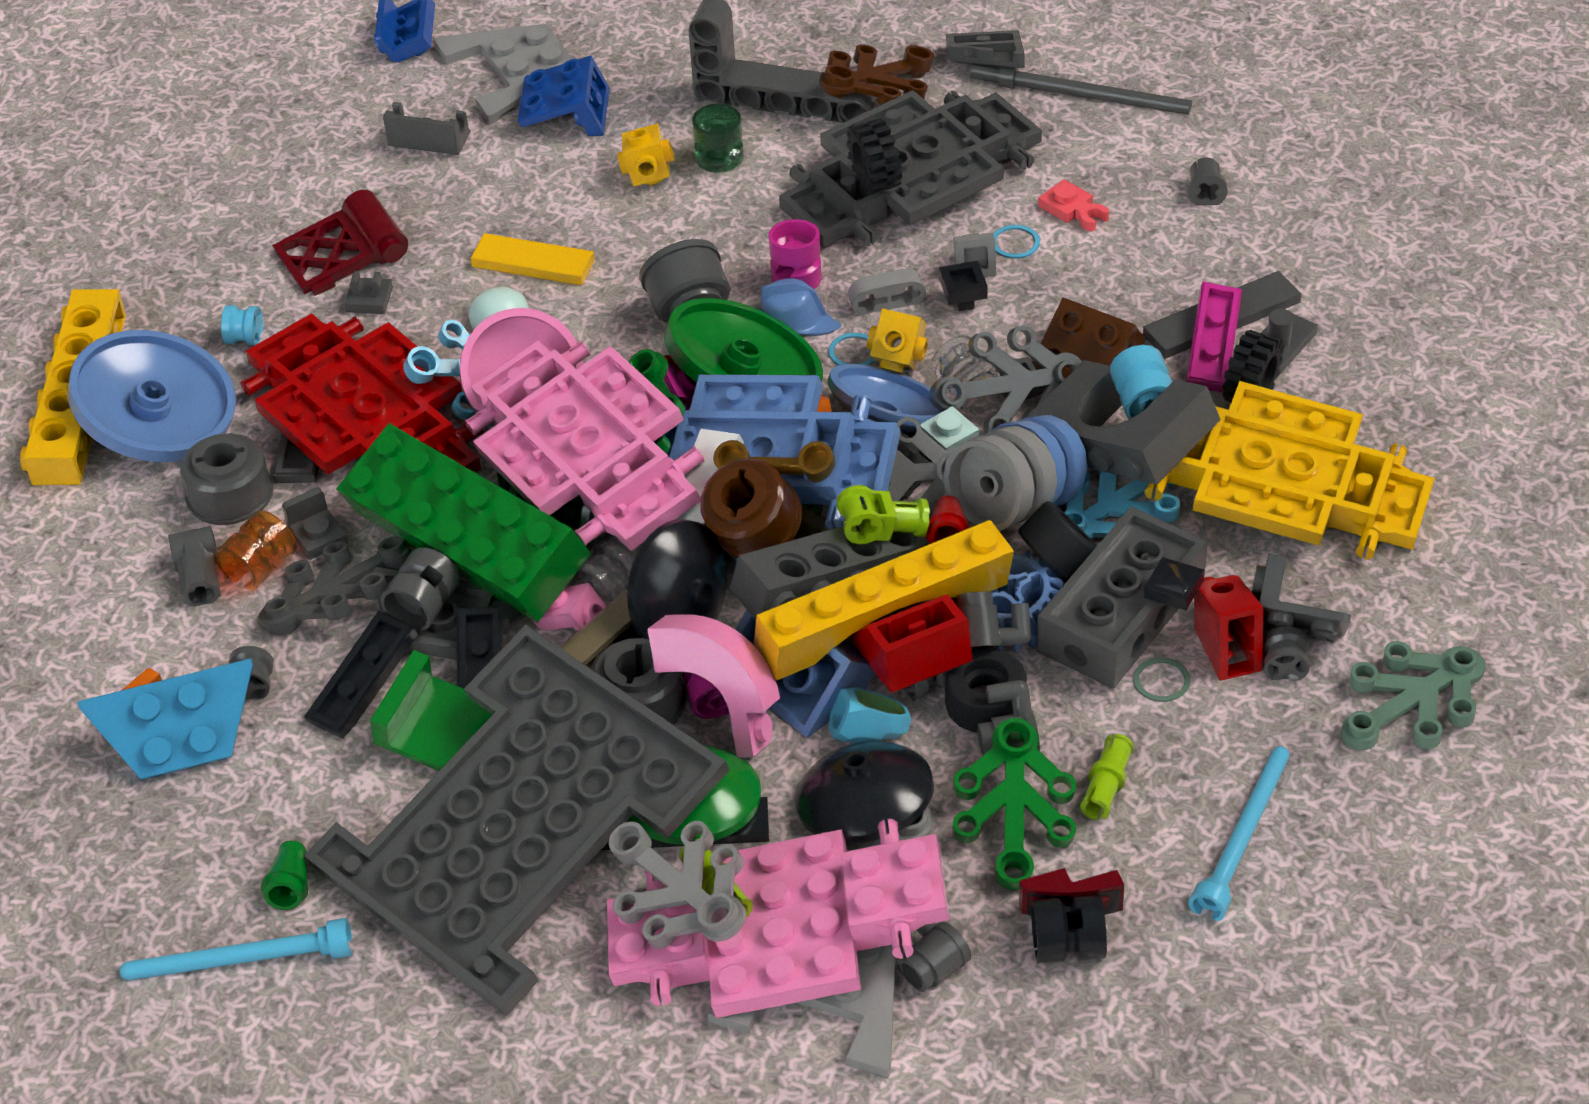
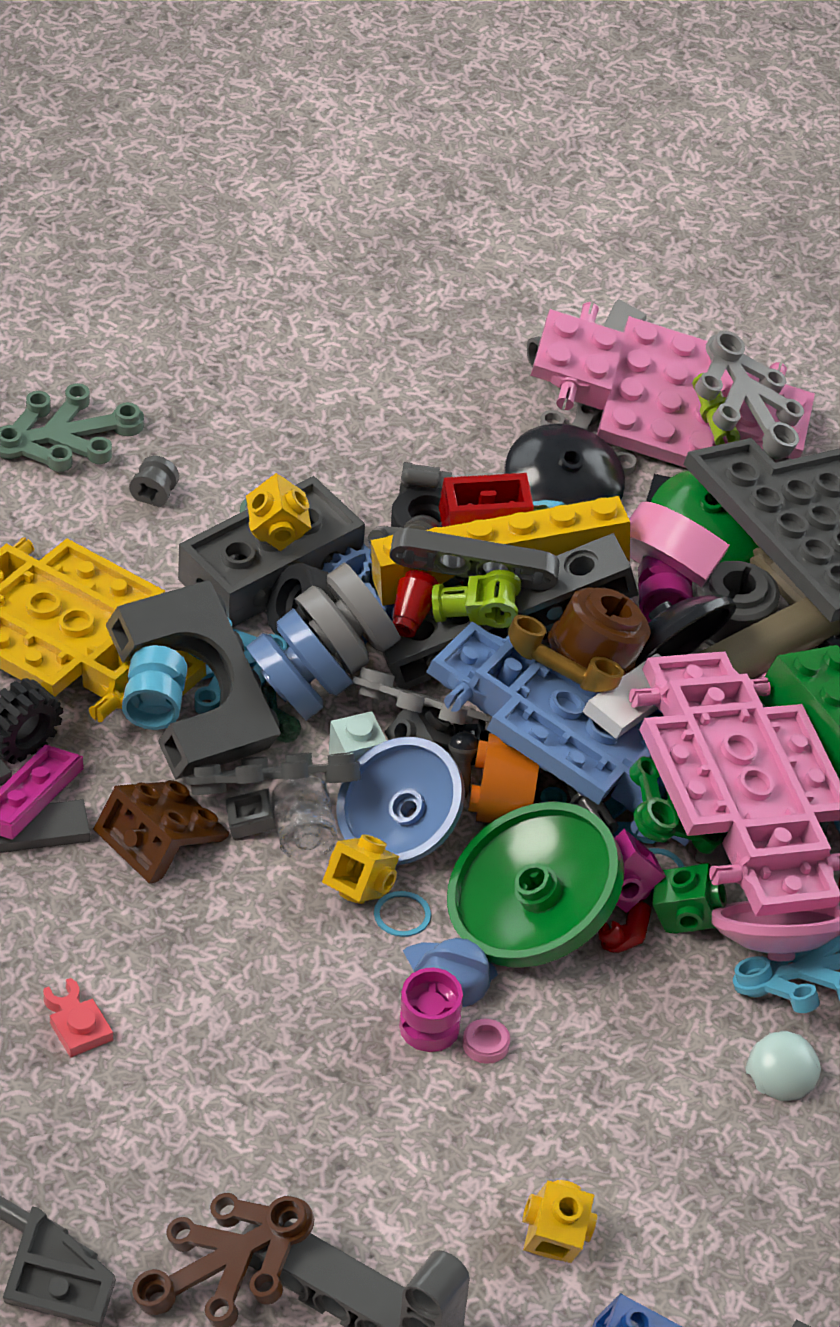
camera: 170 degrees left, 0 degrees up
(532, 259) = (729, 1138): yellow tile -> none
(683, 273) = (567, 1007): dark grey wheel -> none
(718, 138) = (462, 1216): clear green wheel -> none
(746, 274) = (486, 1041): none -> bright pink tile
(874, 156) = (305, 1042): black tyre -> none
(886, 291) = (342, 952): light grey beam -> none
(895, 514) = (472, 557): none -> dark grey beam
(942, 155) = (236, 1115): dark grey piece -> none
(963, 284) = (258, 925): black tile -> none
(974, 248) = (225, 968): light grey tile -> none
(1014, 795) = (432, 446): green plant -> none
(1019, 227) = (146, 1014): medium azure piece -> none
(1051, 934) = (446, 334): black wheel -> none
(1058, 885) = (443, 360): dark red slope -> none
(1107, 777) = (357, 438): lime pin -> none
(1119, 557) = (278, 512): none -> yellow brick
(1174, 583) = (230, 502): black tile -> none
(1214, 891) = (319, 338): medium azure piece -> none
(1224, 604) = (193, 512): red torso -> none
(1278, 614) = (128, 490): dark grey bracket -> none

